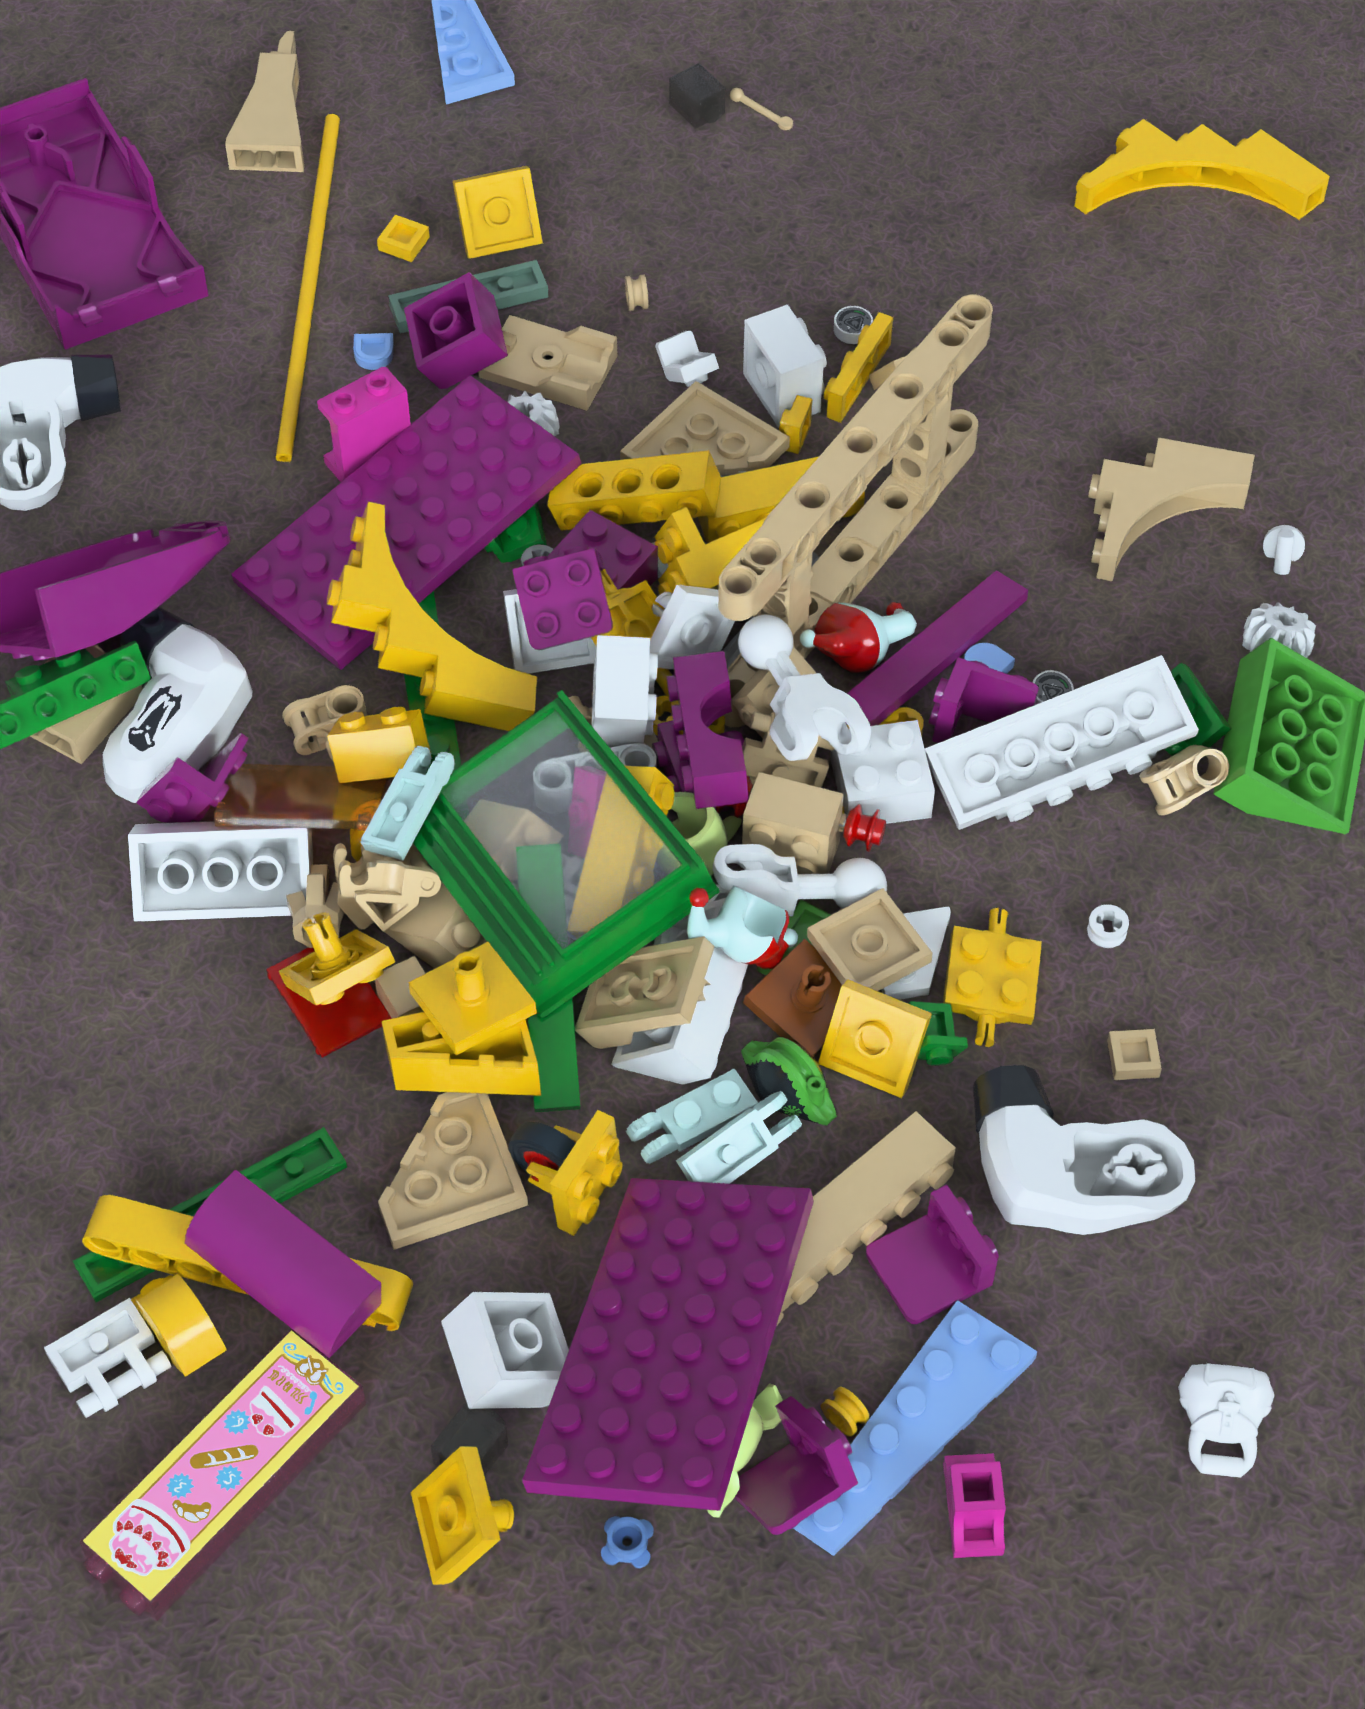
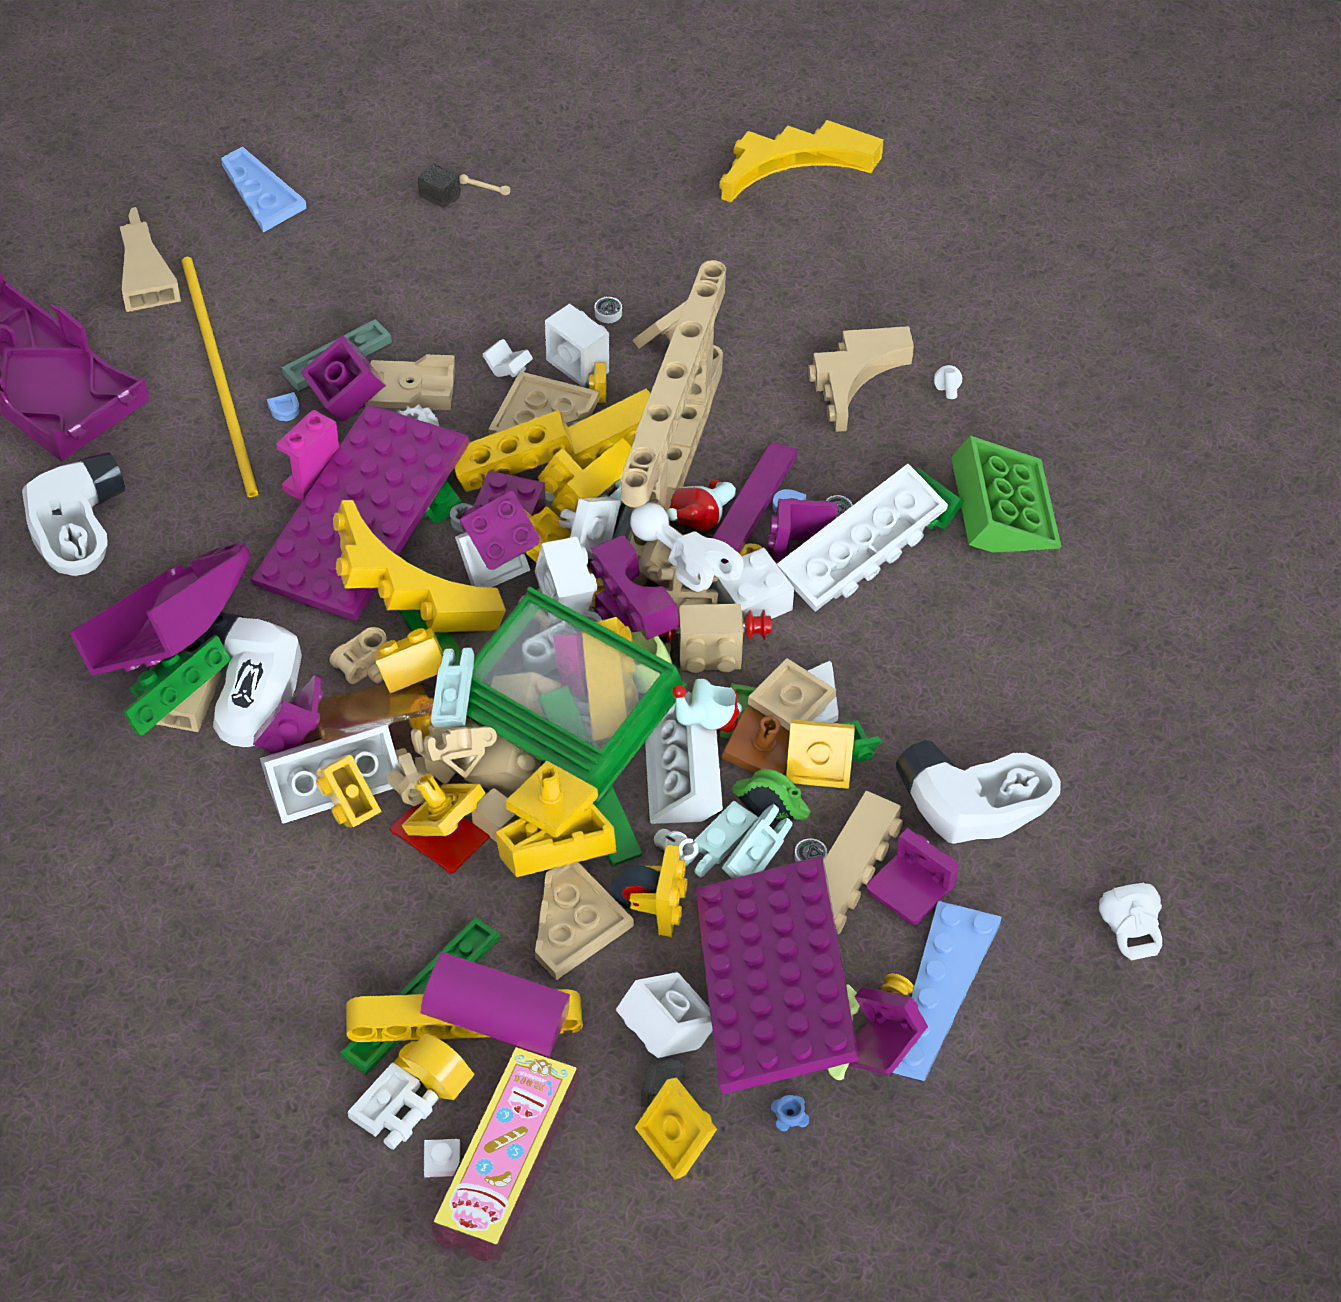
camera: 20 degrees left, 5 degrees down
(140, 1448) = (441, 1157): none -> white plate
(222, 903) = (347, 791): none -> yellow brick
(403, 238) = (274, 327): yellow plate -> none
(497, 212) = (336, 293): yellow tile -> none
(629, 1105) = (676, 839): none -> white pin
(636, 292) = (452, 324): tan bush -> none
(646, 992) = (676, 750): tan piece -> none
(777, 879) = (718, 672): white piece -> none
(809, 1172) = (809, 849): none -> tile
(857, 367) = (624, 335): yellow plate -> none
(975, 1505) = (1003, 1019): dark pink brick -> none
(992, 976) = (875, 696): yellow plate -> none
(1119, 922) = (941, 640): white bush -> none
(1134, 1054) = (985, 718): tan plate -> none
(1176, 779) = (944, 541): tan piece -> none
(1281, 624) = (964, 426): white gear -> none

